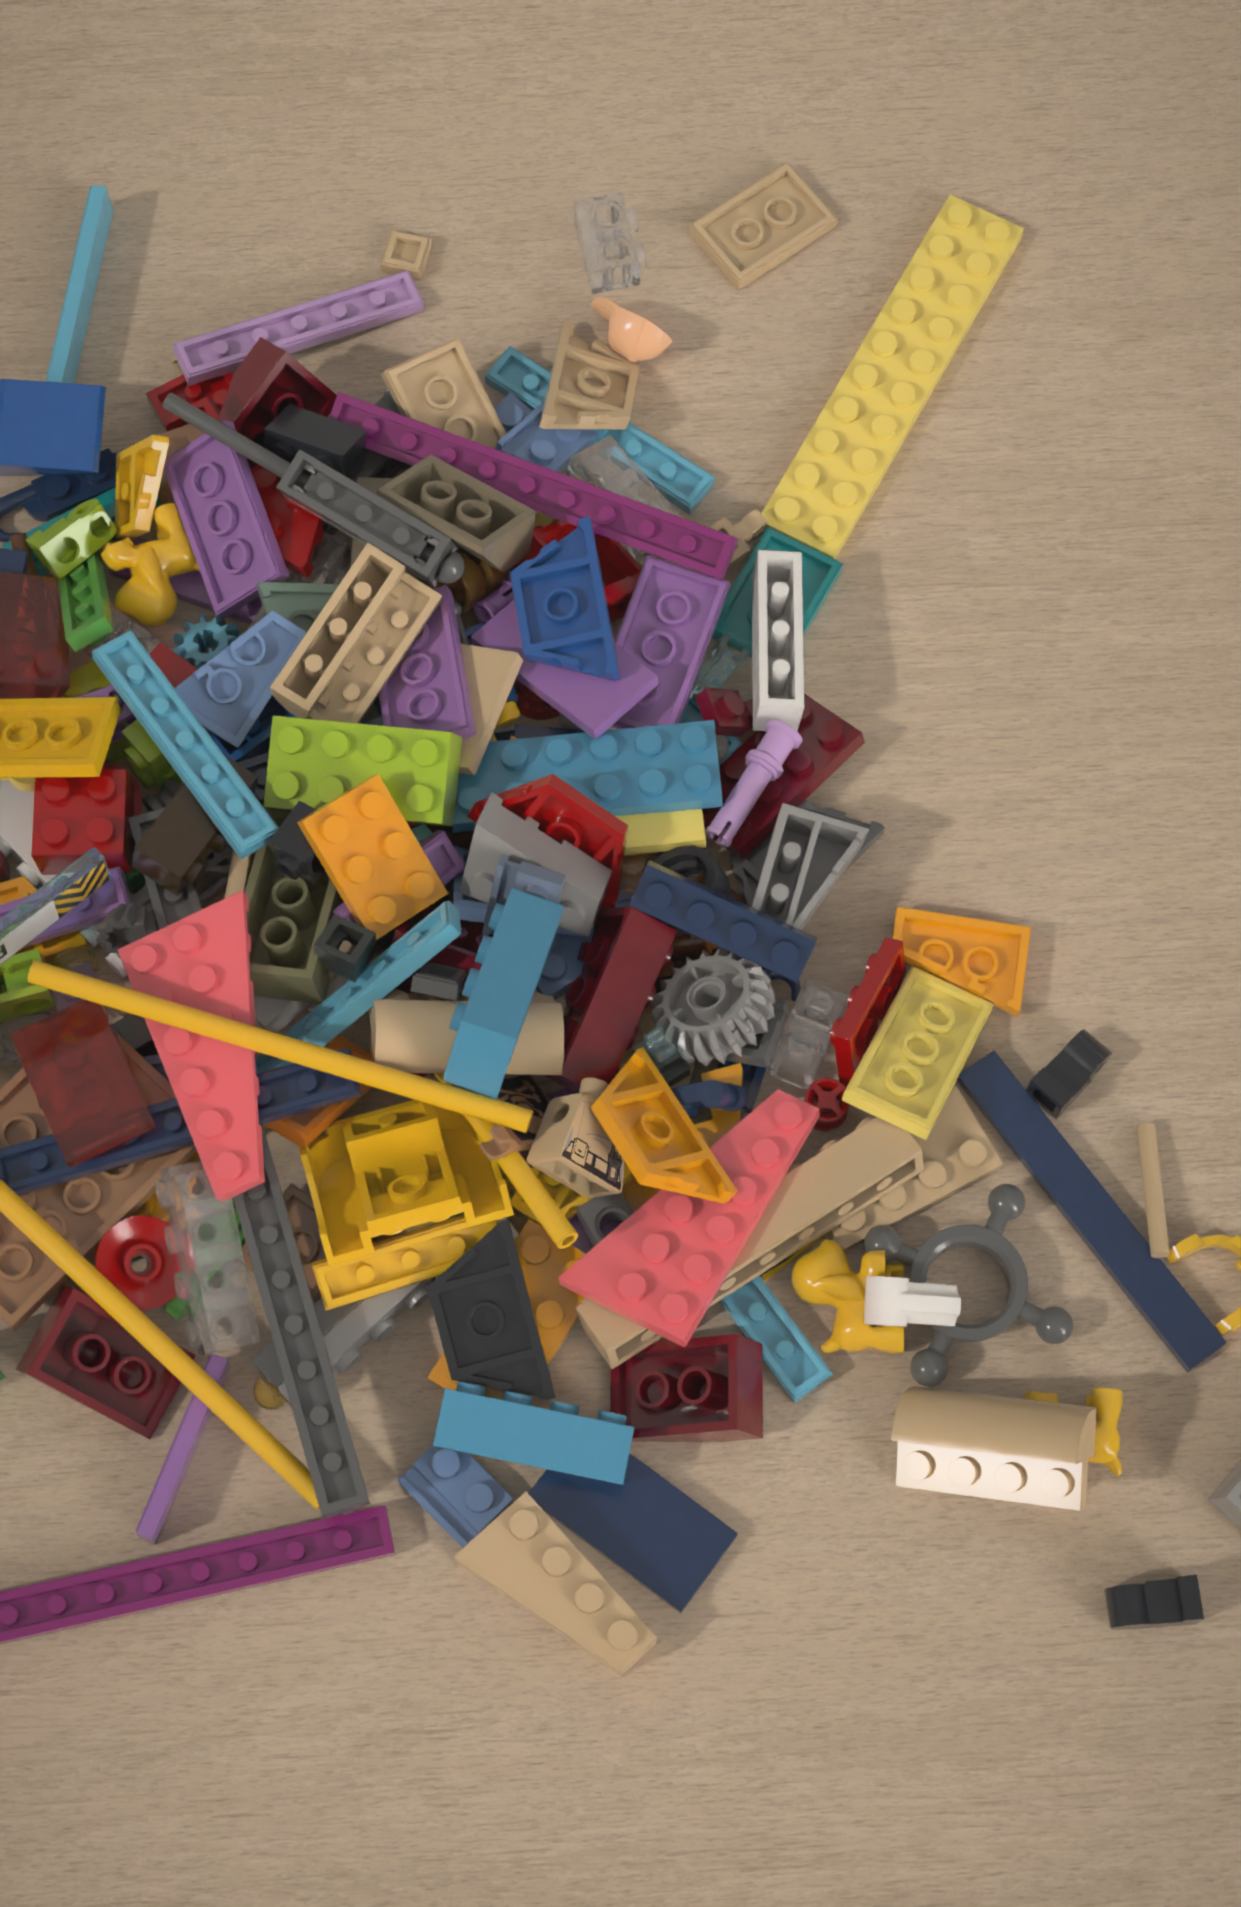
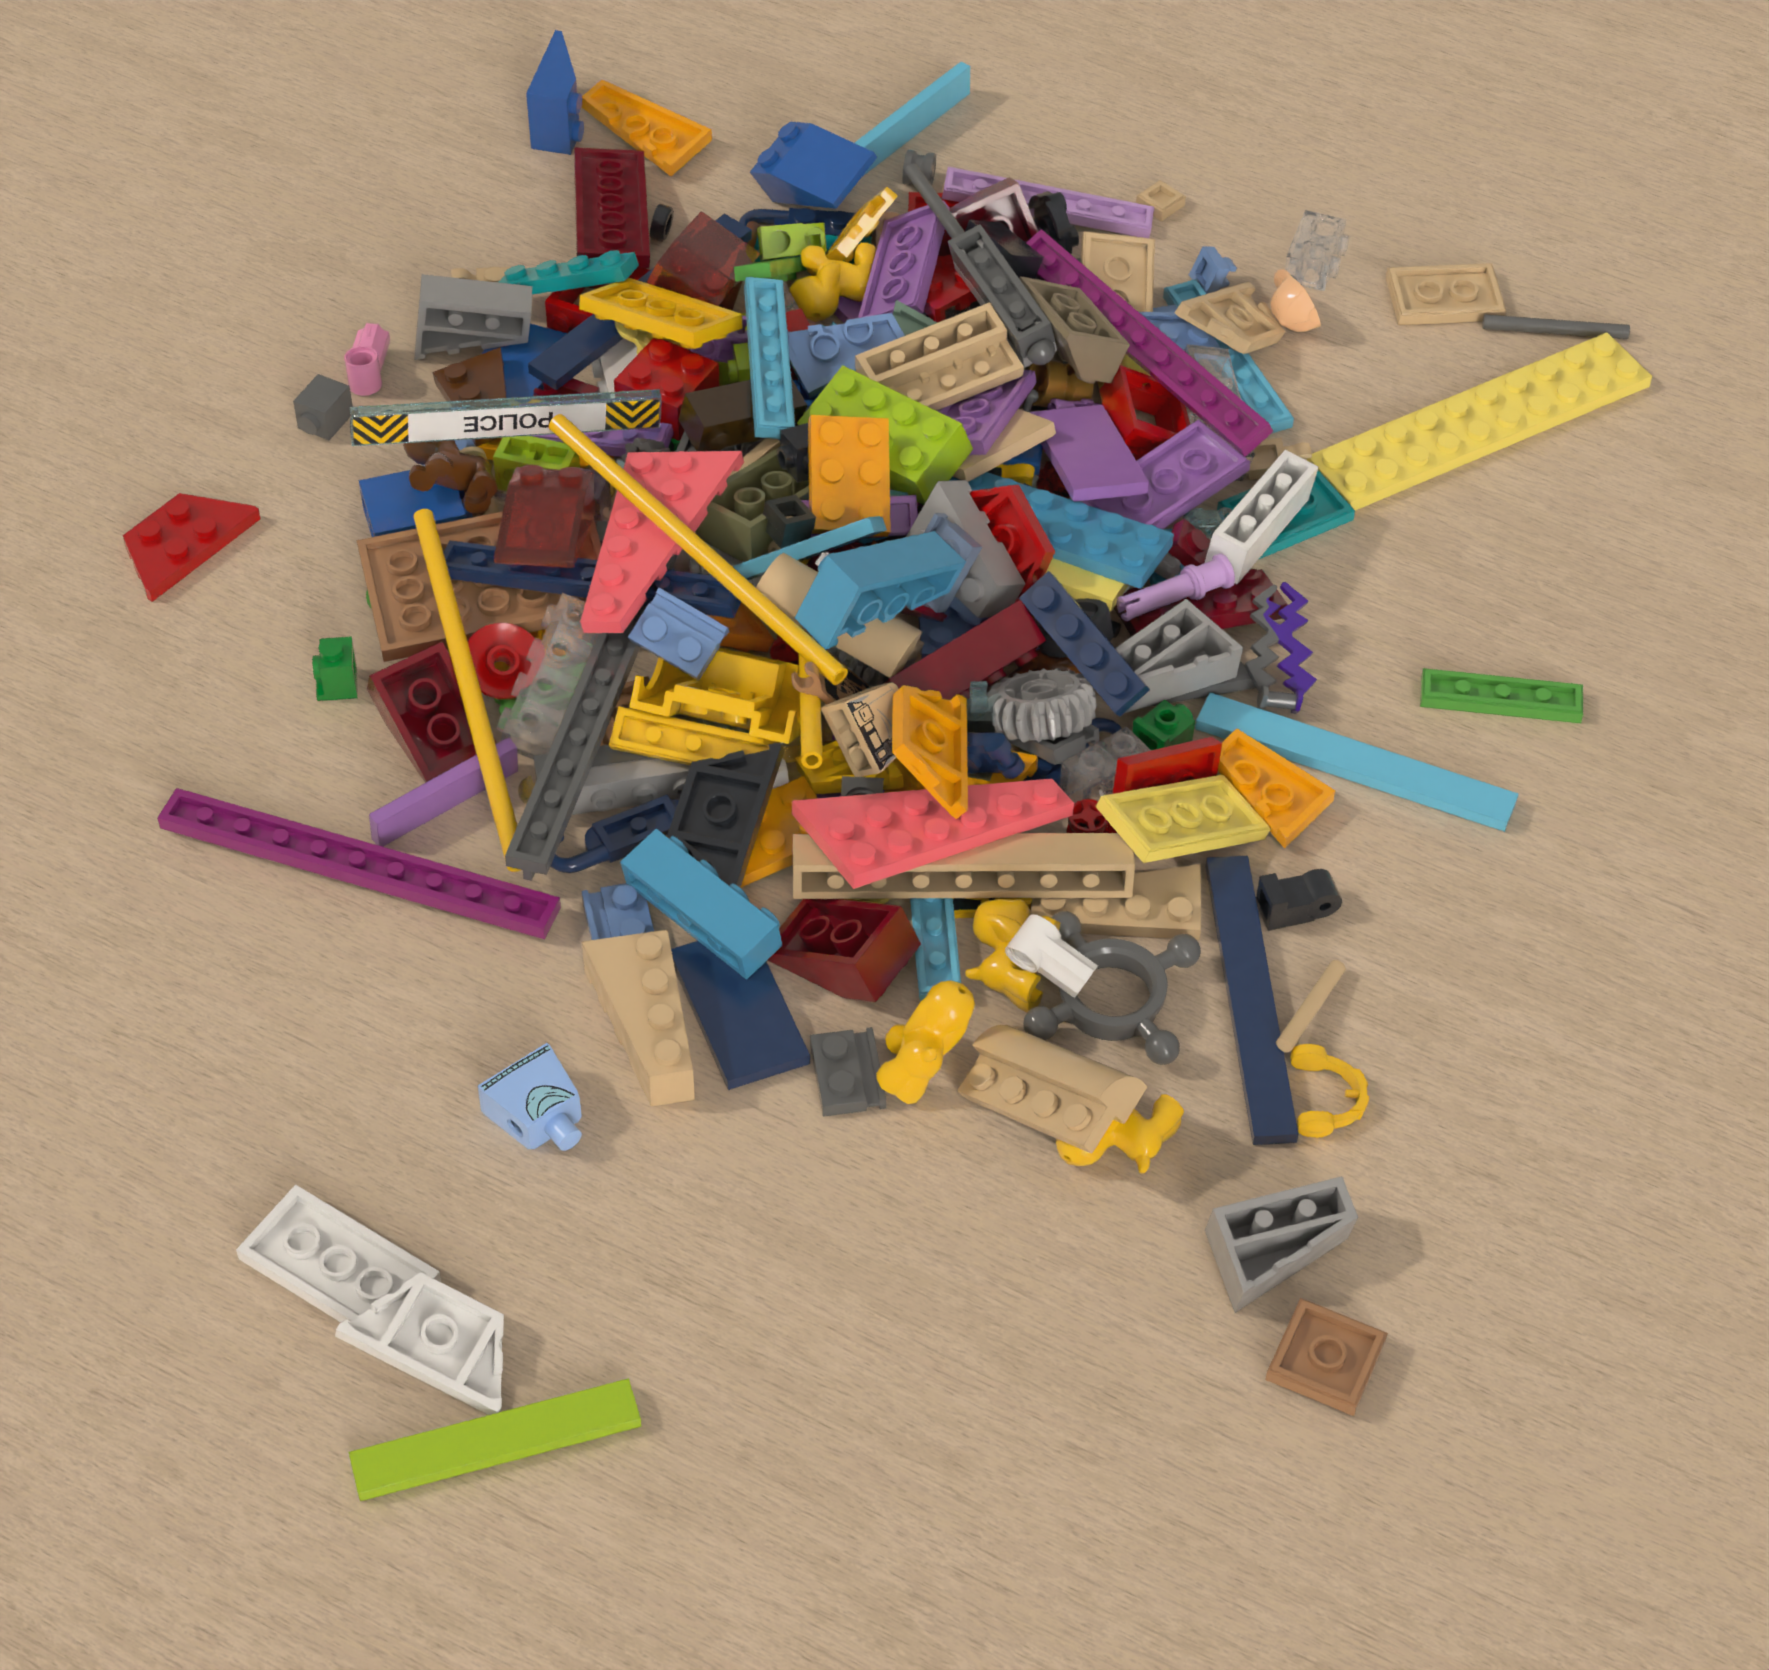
camera: 30 degrees right, 20 degrees down
(135, 353) = (926, 164): none -> dark grey wheel
(318, 1146) = (678, 634): none -> medium blue plate
(332, 364) = (1053, 220): none -> black plate
(397, 1382) = (619, 834): none -> dark blue plate
(520, 1752) = (534, 1101): none -> light blue torso
(521, 328) = (1211, 269): none -> medium blue tile
(565, 606) = (1110, 412): blue wing -> none
(780, 1525) = (847, 1071): none -> dark grey plate
(825, 962) = (1165, 725): none -> green brick
(848, 1438) = (925, 1038): none -> yellow animal
(875, 773) = (1300, 679): none -> piece
(893, 210) = (1555, 326): none -> dark grey bar
(1022, 873) = (1361, 762): none -> medium azure tile
(1107, 712) = (1501, 695): none -> bright green tile
(1155, 1604) = (1107, 1274): black leg -> none

